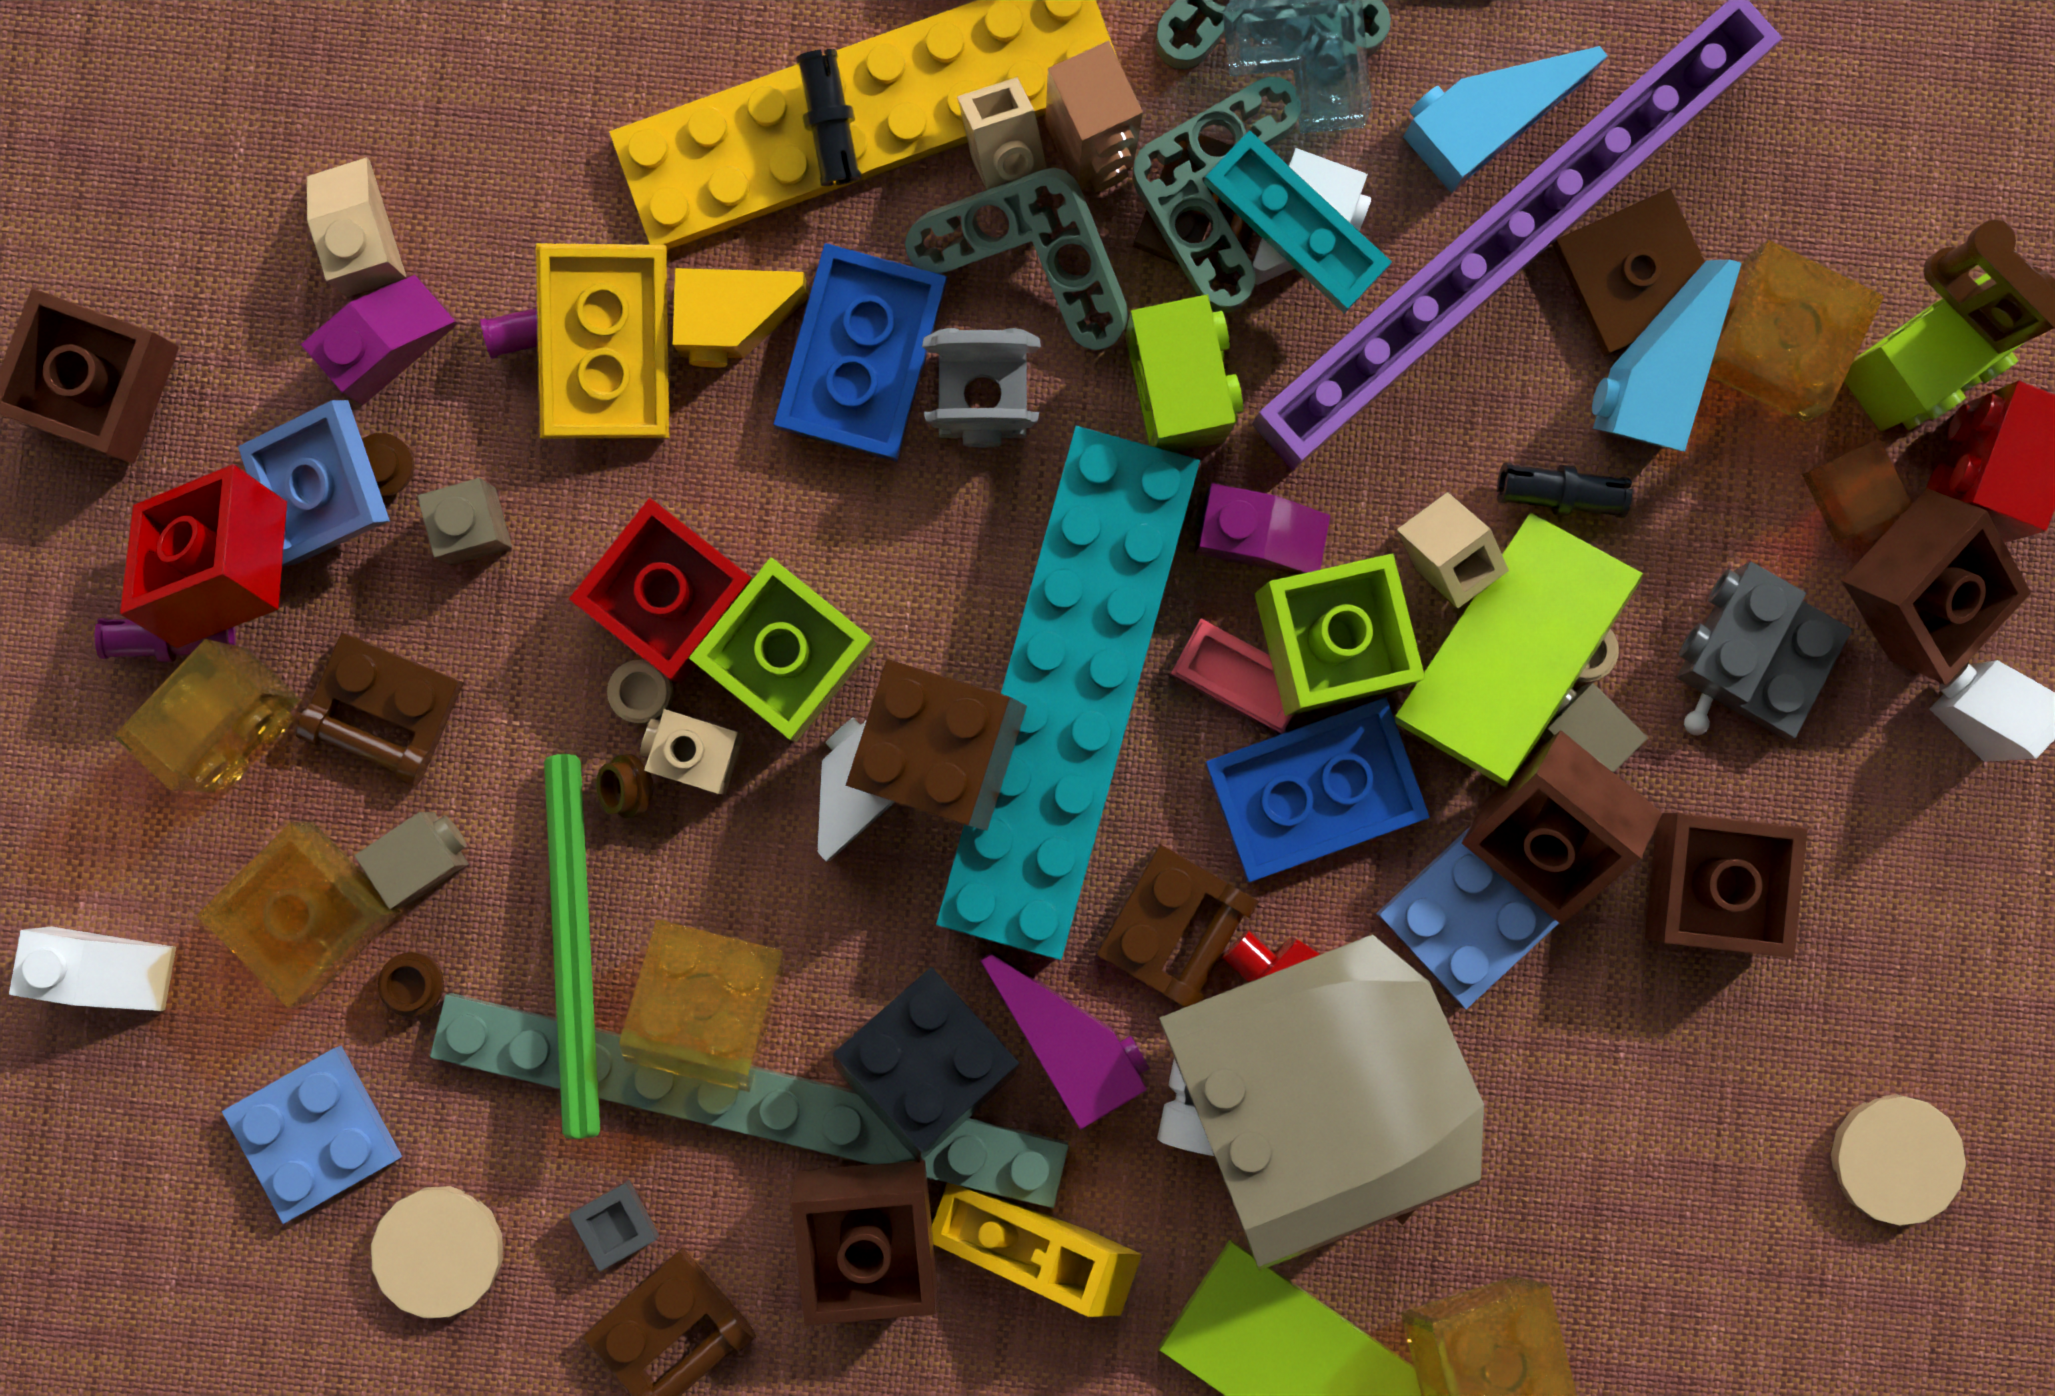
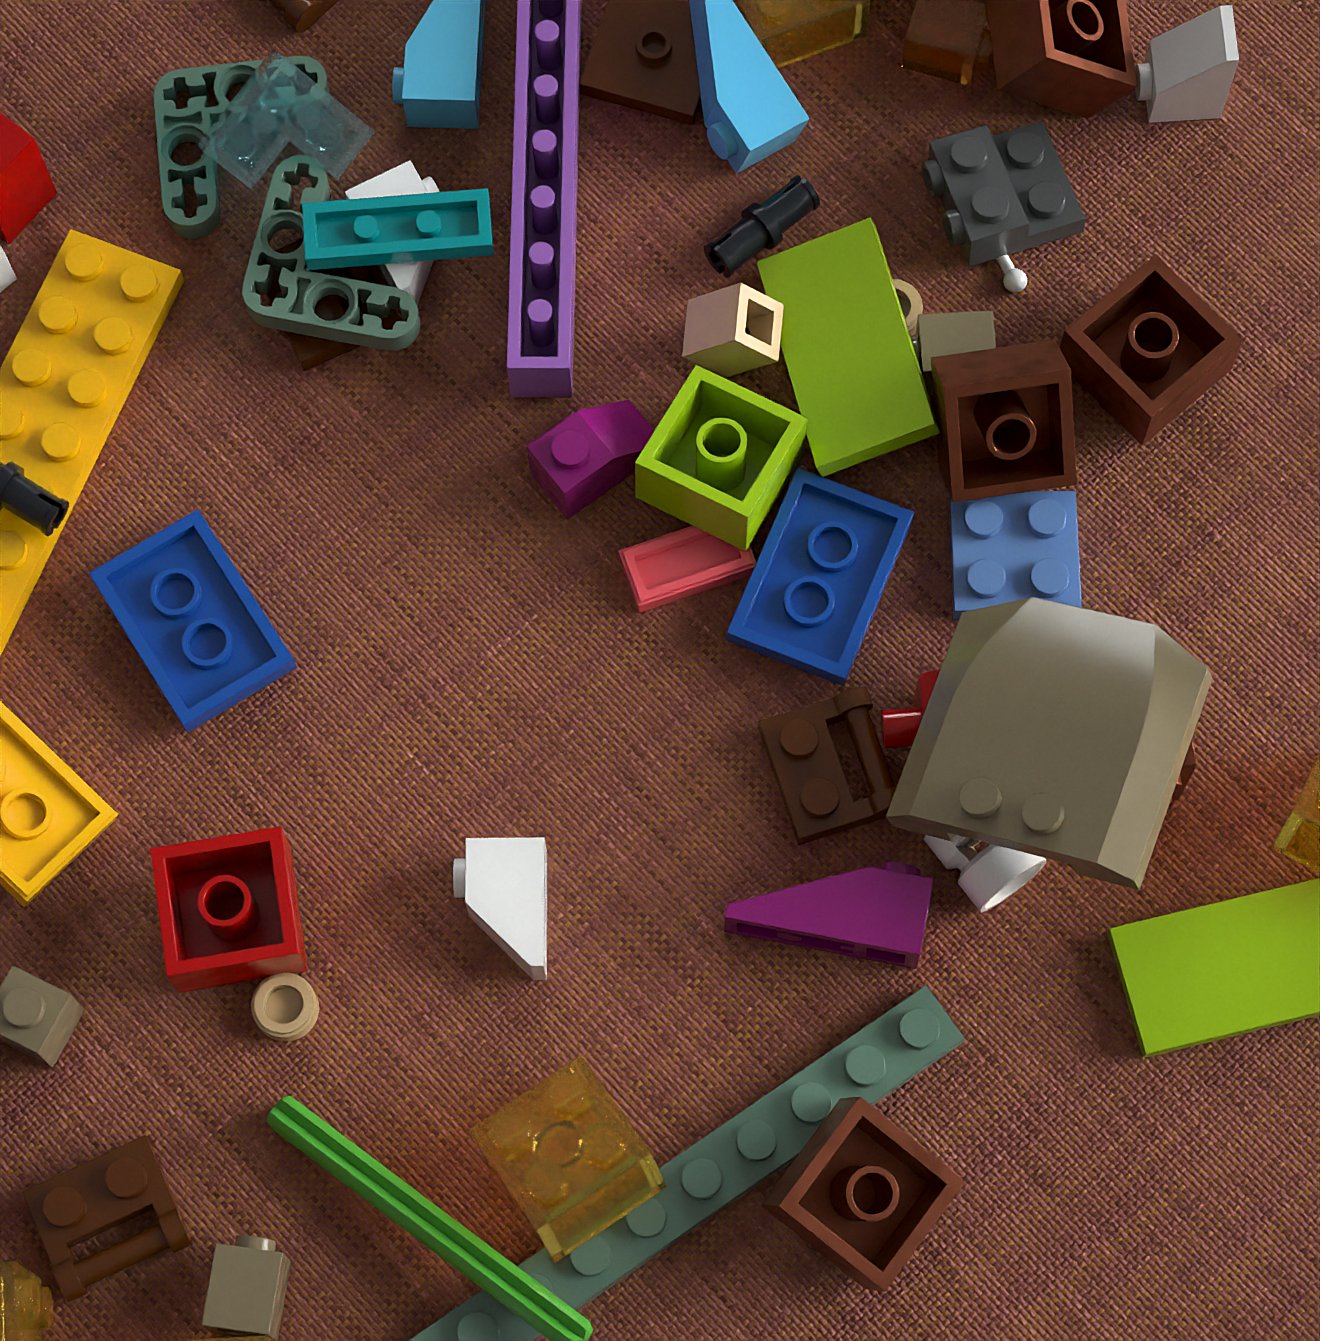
camera: 40 degrees left, 15 degrees down
(624, 786) = (345, 1077): reddish brown plate -> none
(691, 751) = (366, 1001): tan brick -> none
(730, 311) = (70, 683): yellow slope -> none
(782, 650) = (356, 861): lime brick -> none
(925, 1064) = (765, 1028): black brick -> none
(936, 744) = (532, 793): reddish brown brick -> none
(975, 355) = (284, 528): light grey piece -> none
(1002, 132) = (137, 381): tan brick -> none
(1033, 224) = (217, 417): sand green beam -> none
(1036, 1251) = (987, 1075): yellow slope -> none
(1078, 676) = (586, 690): teal brick -> none
(1093, 117) = (189, 300): nougat brick -> none
(1182, 374) = (429, 404): lime brick -> none

